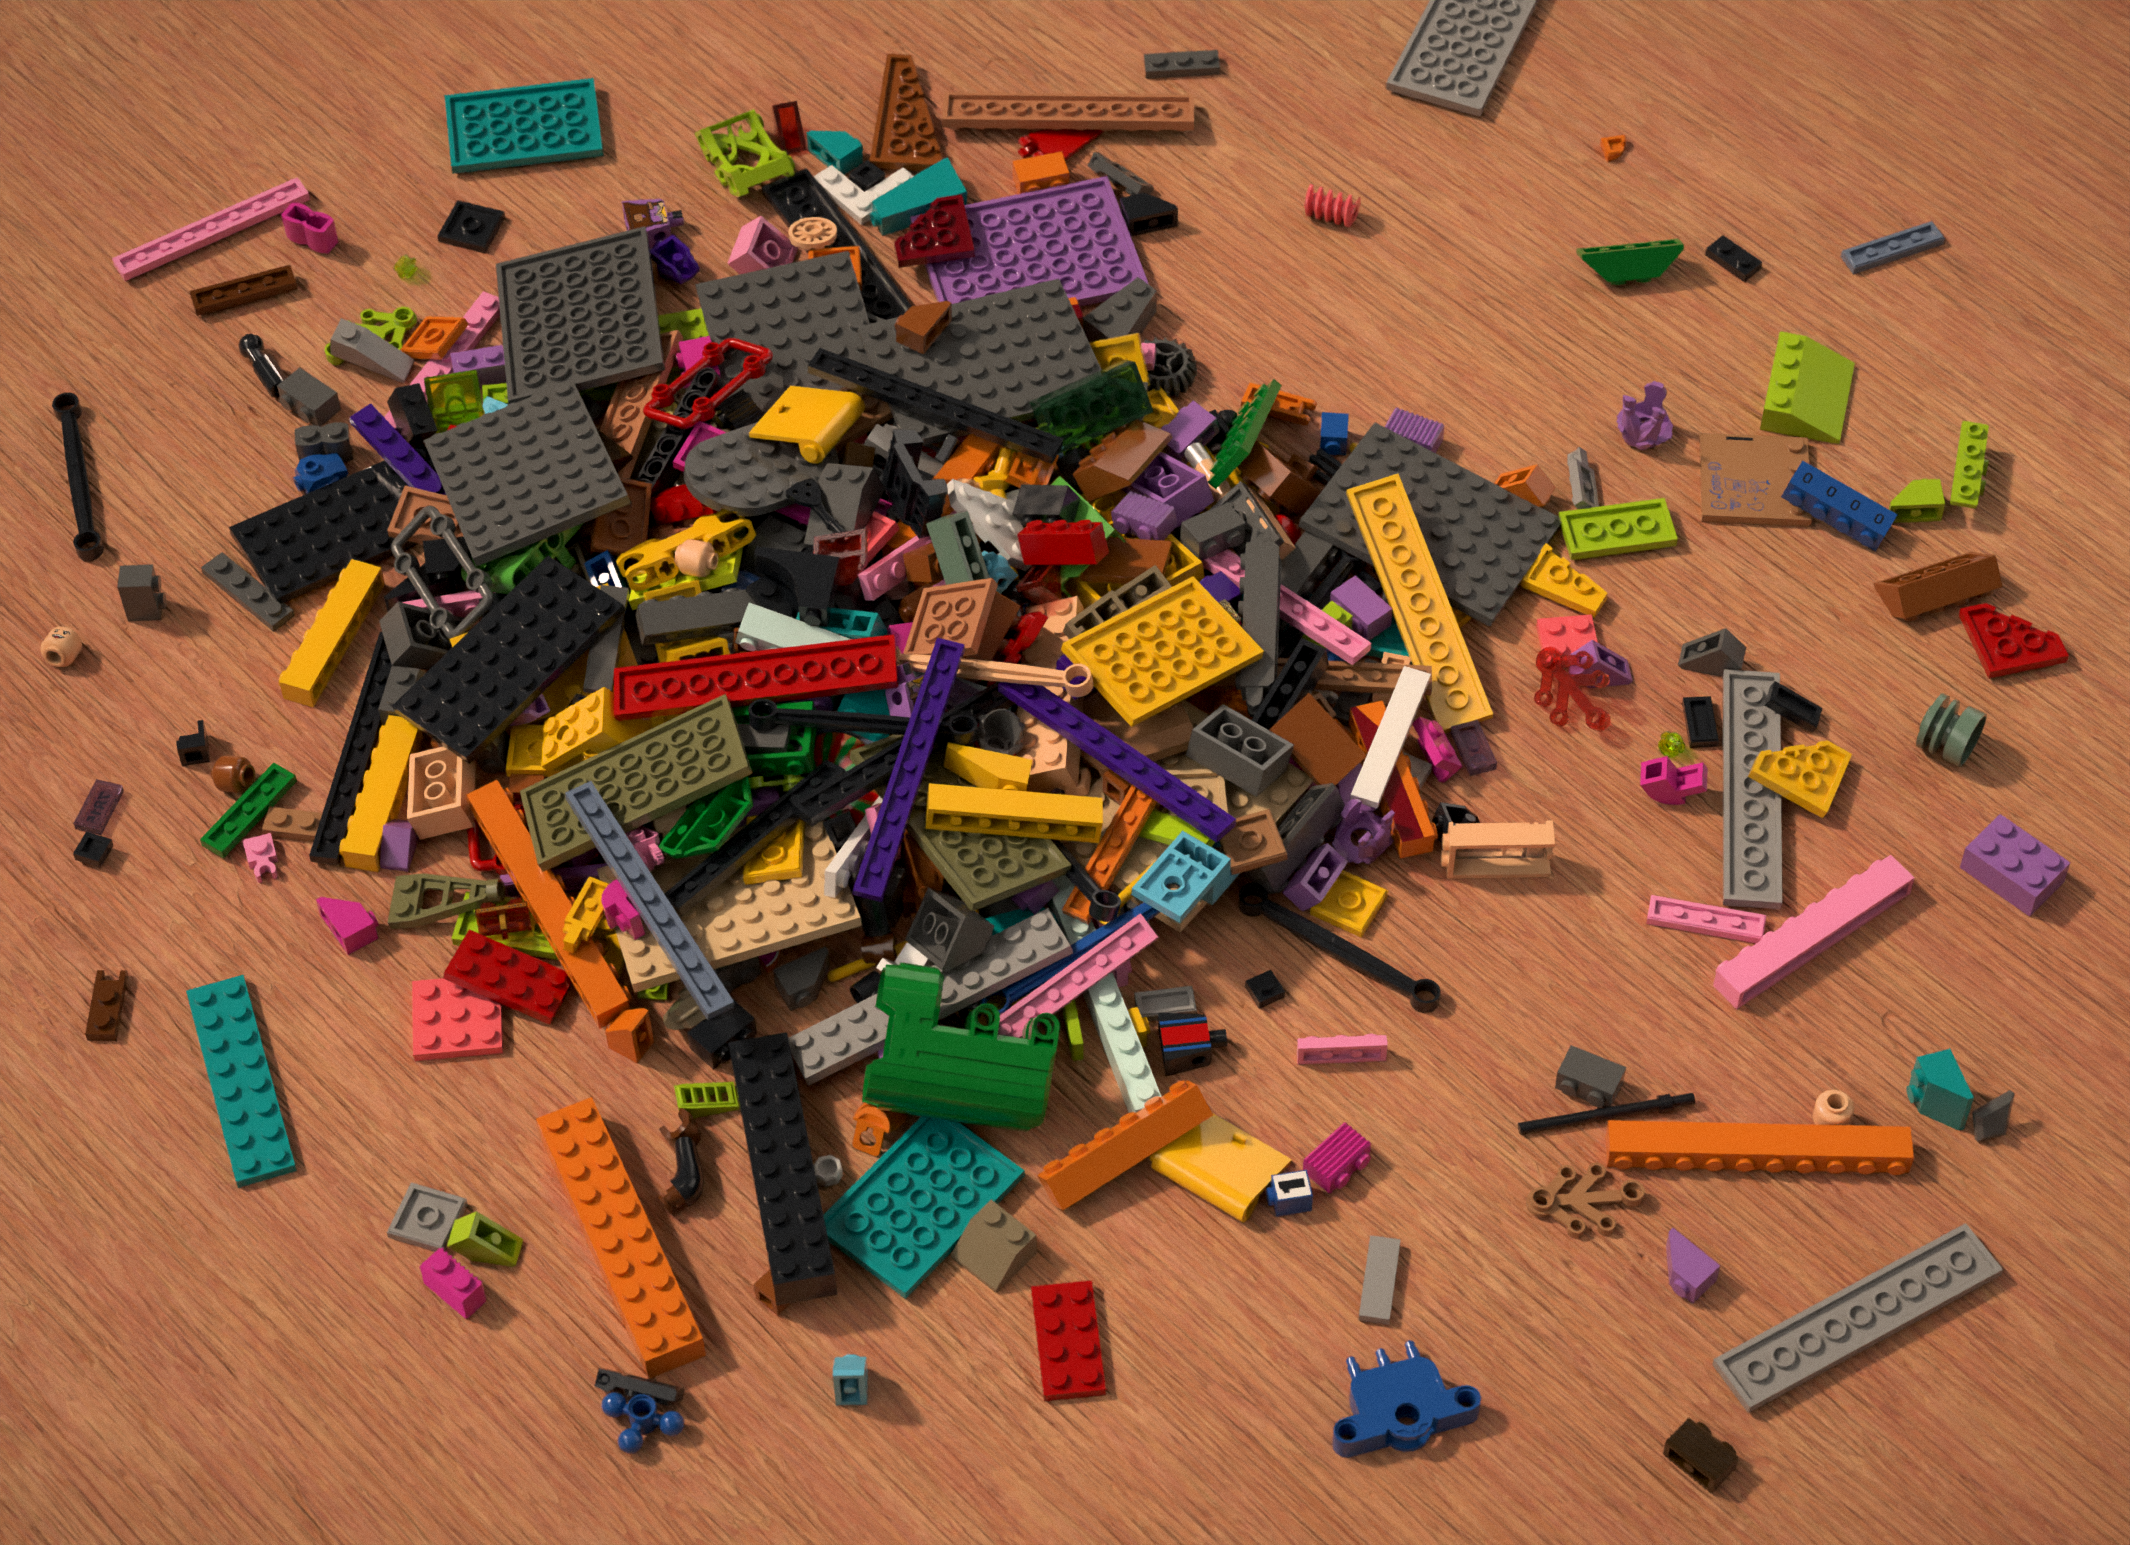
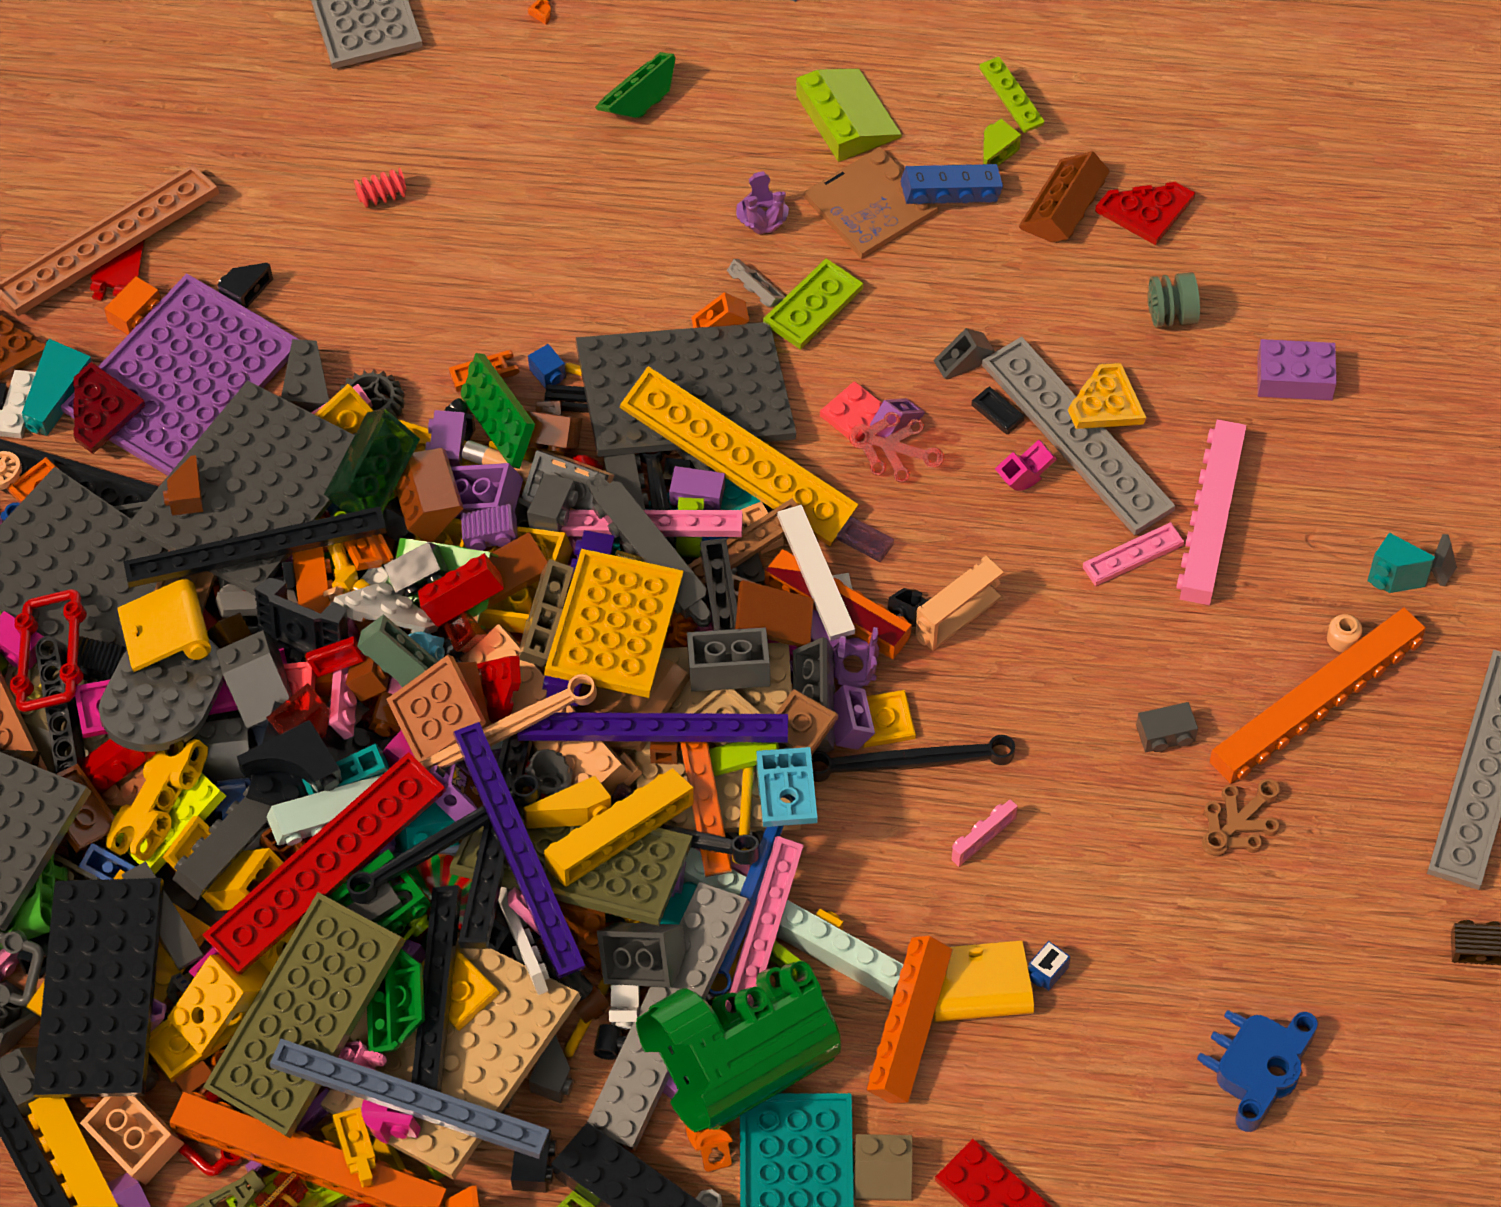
camera: 40 degrees left, 5 degrees up
(683, 1013) = (491, 1163): dark tan hand -> none
(696, 558) = (181, 799): light nougat head -> none
(814, 502) = (237, 689): black piece -> none
(910, 527) = (335, 656): none -> red tile
(1119, 174) = (193, 266): dark grey hinge -> none
(1165, 1001) = (828, 890): light grey tile -> none
(1181, 64) = (156, 146): dark grey plate -> none
(1187, 1041) = (872, 908): torso -> none
(1264, 989) = (887, 827): black plate -> none
(1338, 1158) = (1055, 915): dark pink brick -> none
(1379, 1280) = (1162, 983): light grey tile -> none
(1417, 429) = (604, 322): medium lavender brick -> none
(1436, 748) = (846, 559): dark pink bracket -> none
(1561, 583) = (812, 372): yellow wing -> none
(1662, 1103) = (1227, 711): black bar -> none
(1671, 744) = (995, 441): clear neon green plate -> none
(1689, 1267) = (1351, 815): medium lavender slope -> none
(1733, 258) = (704, 42): black plate -> none
(1793, 706) = (1053, 355): black tile -> none

